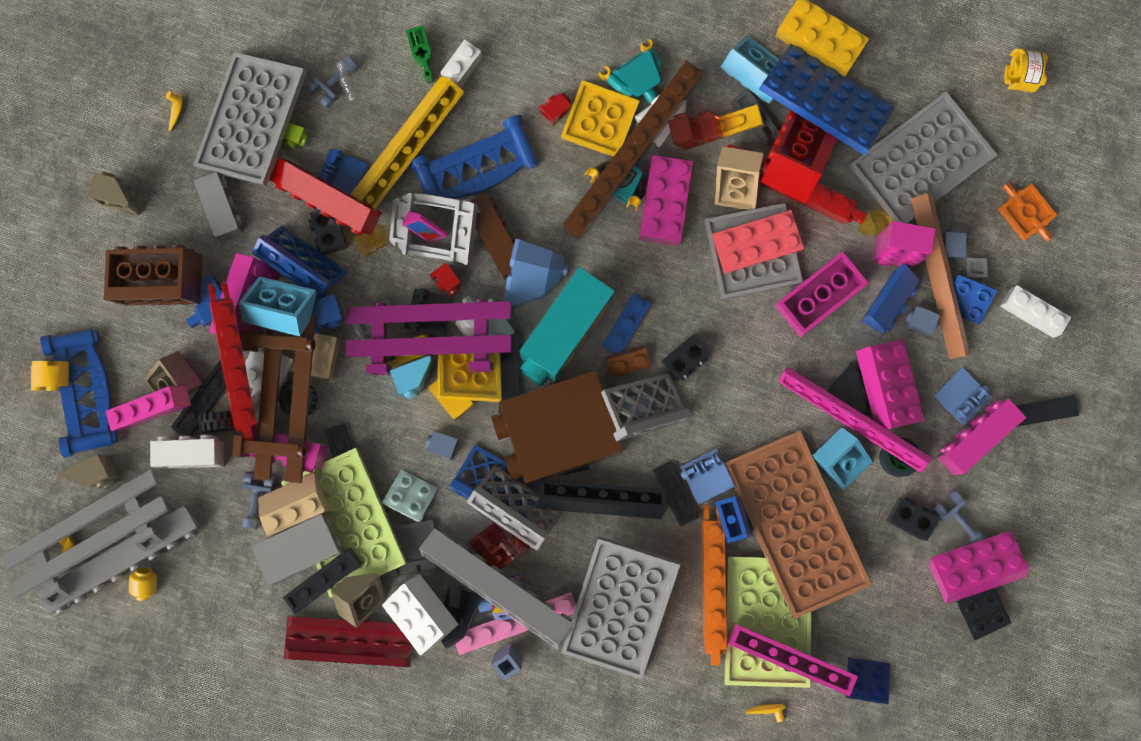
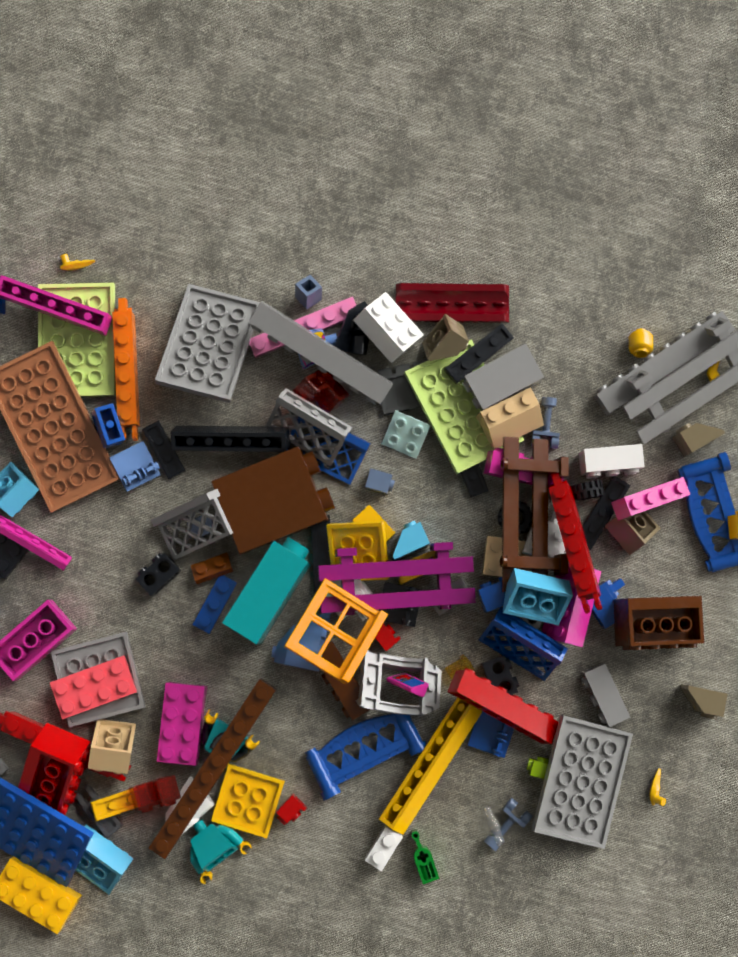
camera: 175 degrees right, 0 degrees up
(470, 263) = (359, 645): none -> light orange window

